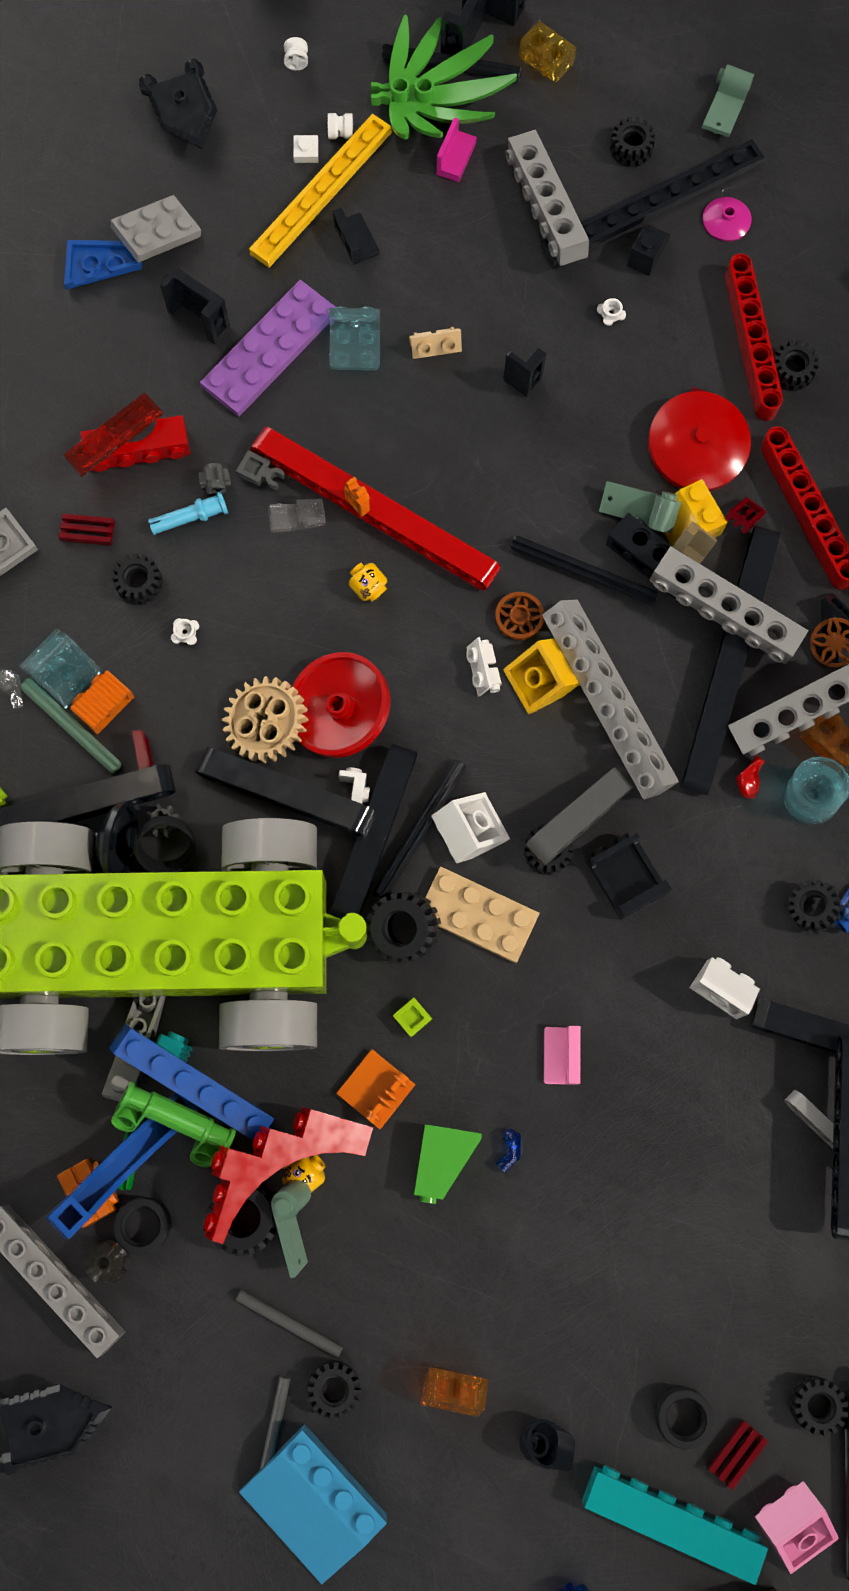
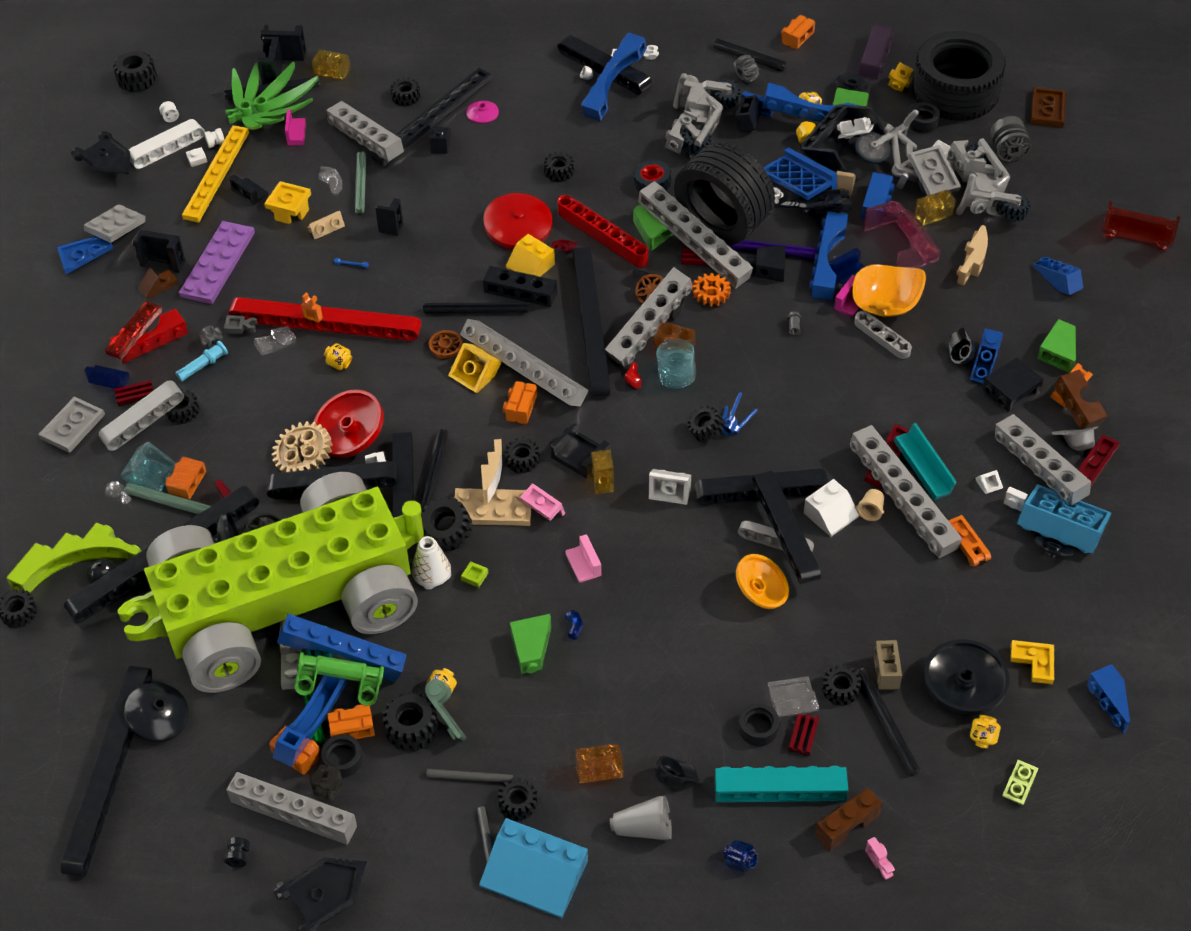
camera: 20 degrees left, 25 degrees down
(62, 488) = (106, 376): none -> clear blue panel
(78, 579) = (141, 415): none -> light grey beam
(170, 1183) = (352, 722): none -> orange brick
(176, 355) = (155, 284): none -> reddish brown slope
(181, 625) = (226, 423): white plate -> none
(272, 110) = (165, 143): none -> white beam
(273, 1150) = (435, 652): arch -> none
(354, 338) = (271, 237): clear light blue bracket -> none
(360, 995) = (430, 564): none -> white cone
(376, 1089) = (469, 622): orange hinge -> none
(398, 284) = (288, 201): none -> yellow panel
(429, 411) = (337, 261): none -> blue hinge
(470, 827) = (462, 460): white slope -> none
(476, 261) = (333, 178): none -> clear piece
(476, 1503) = (644, 820): none -> light grey cone
(480, 655) = (433, 376): white hinge -> none
(493, 871) = (492, 472): none -> tan slope
(509, 284) = (360, 183): none -> sand green axle
(542, 945) = (542, 502): none -> bright pink panel
(579, 816) = (532, 425): dark grey beam -> none
(580, 761) = (520, 402): none -> orange brick
(611, 305) = (431, 175): white plate -> none
(643, 931) = (602, 471): none -> clear yellow brick
(654, 509) = (507, 259): sand green door -> none
(695, 543) = (538, 266): dark tan panel -> none
(728, 100) = (456, 54): sand green door -> none
(742, 604) = (574, 287): light grey brick -> none
(746, 1396) = (792, 696): none -> clear slope
(752, 348) = (527, 161): red beam -> none
(782, 1204) = (762, 581): none -> light orange dish
(797, 1526) = (862, 754): bright pink slope -> none

